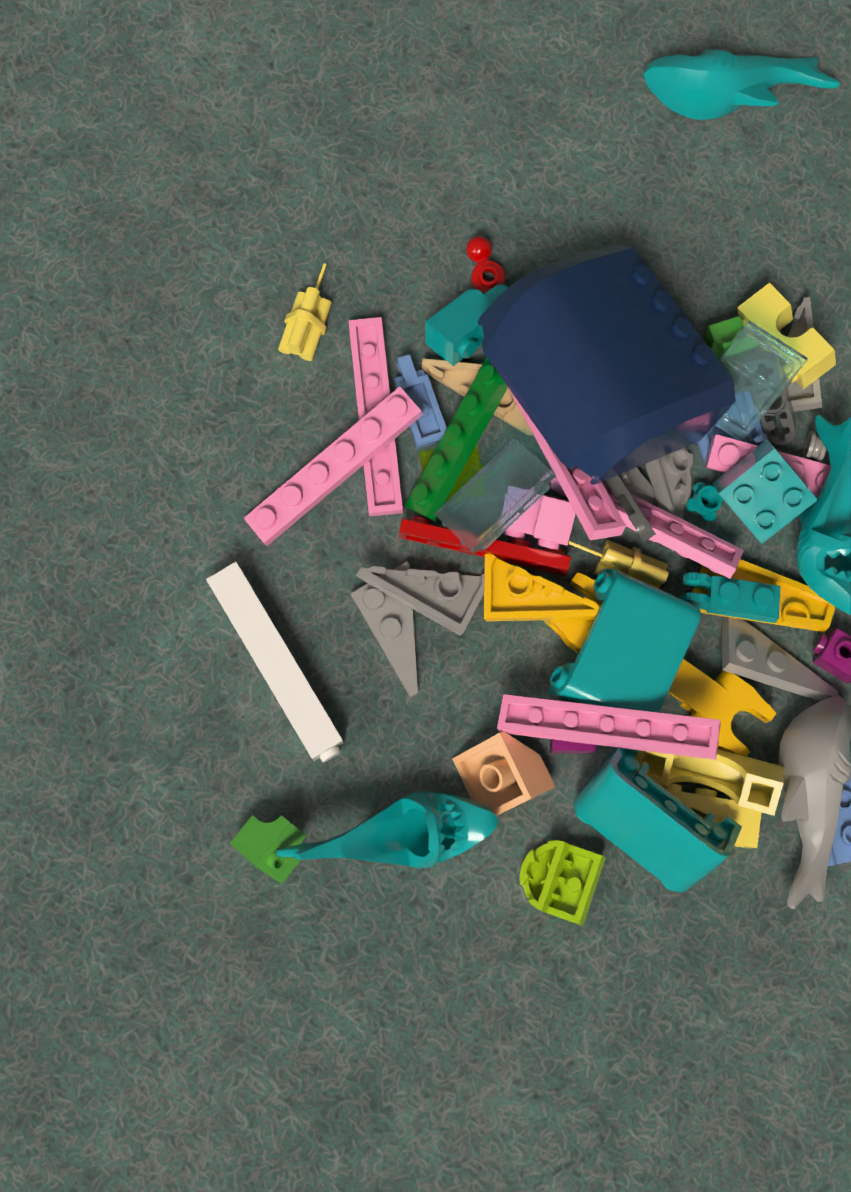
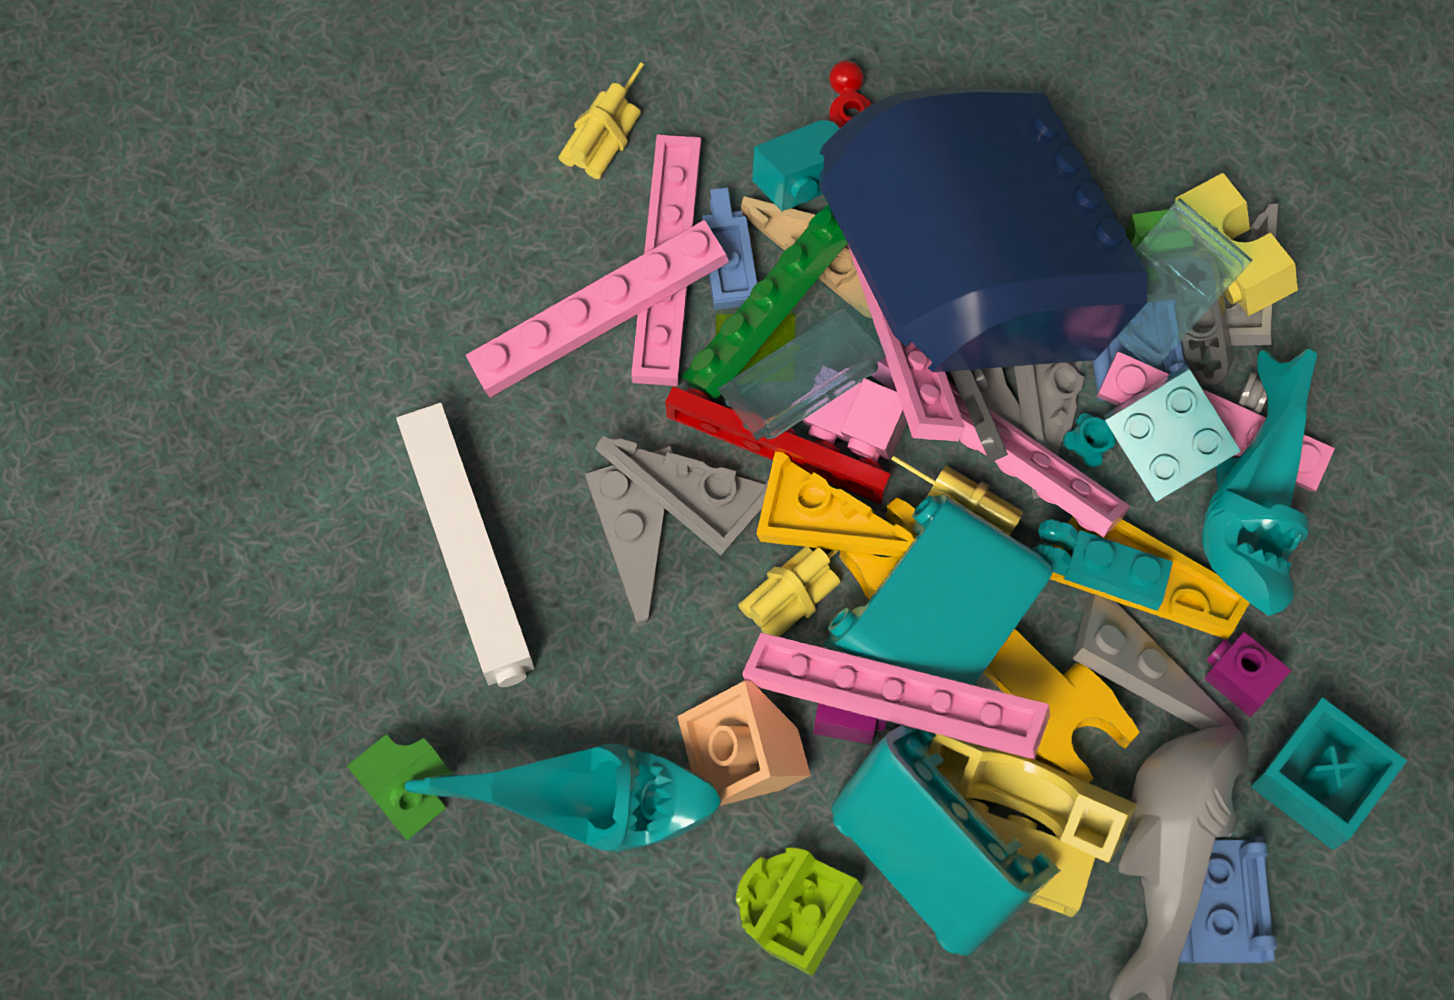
camera: 15 degrees right, 10 degrees down
(514, 654) = (791, 591): none -> light yellow piece

